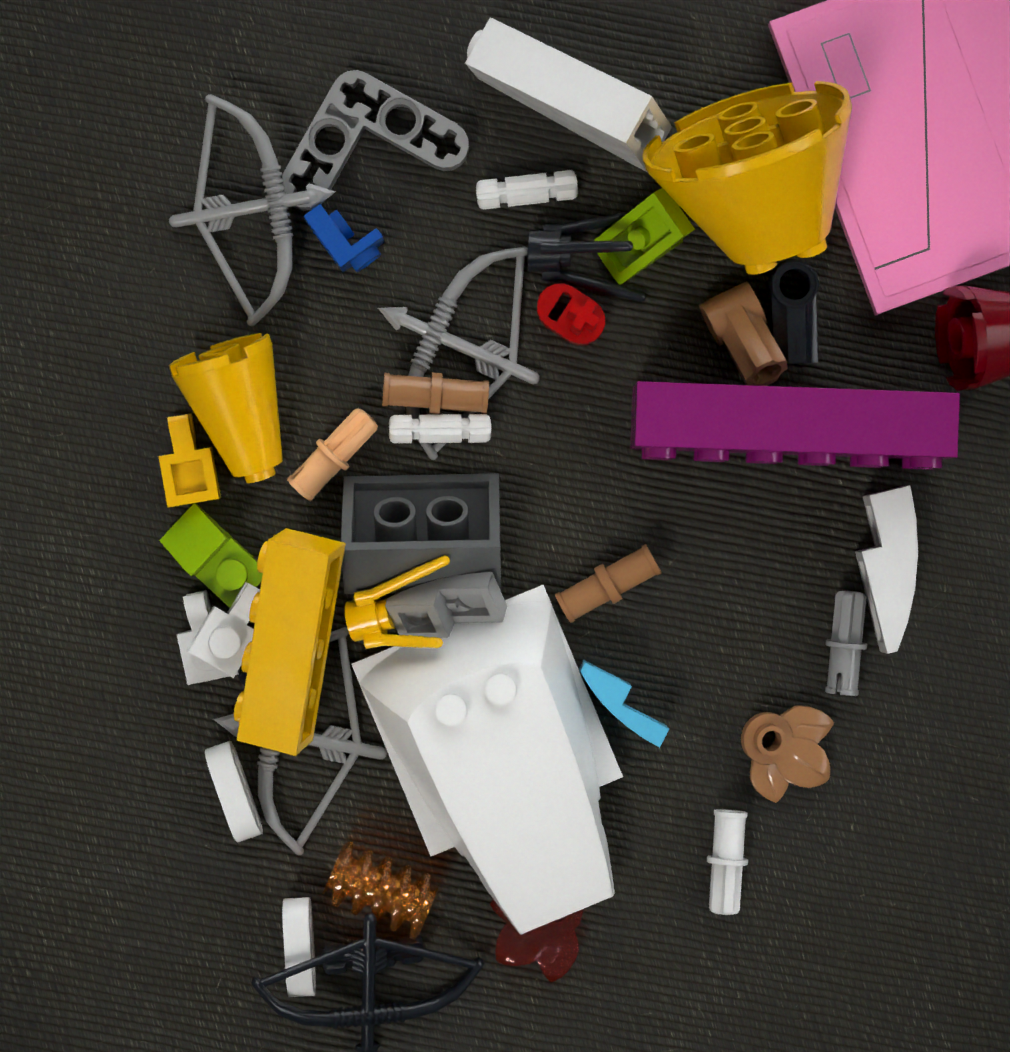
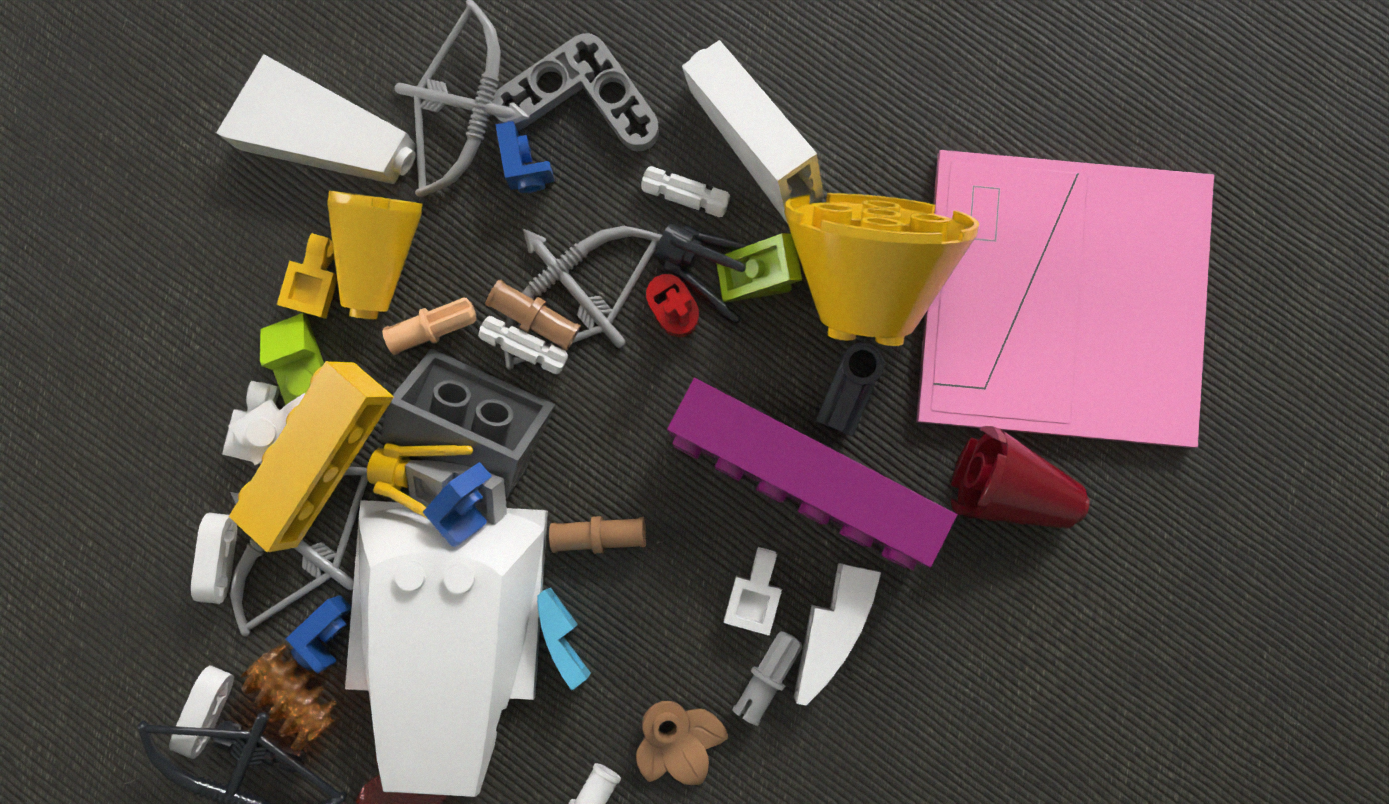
camera: 30 degrees right, 5 degrees down
(107, 305) = (309, 125): none -> white slope
(377, 805) = (323, 625): none -> blue bracket
(460, 625) = (454, 507): none -> blue bracket
(739, 325) = (803, 378): medium nougat piece -> none
(795, 574) = (753, 599): none -> white plate

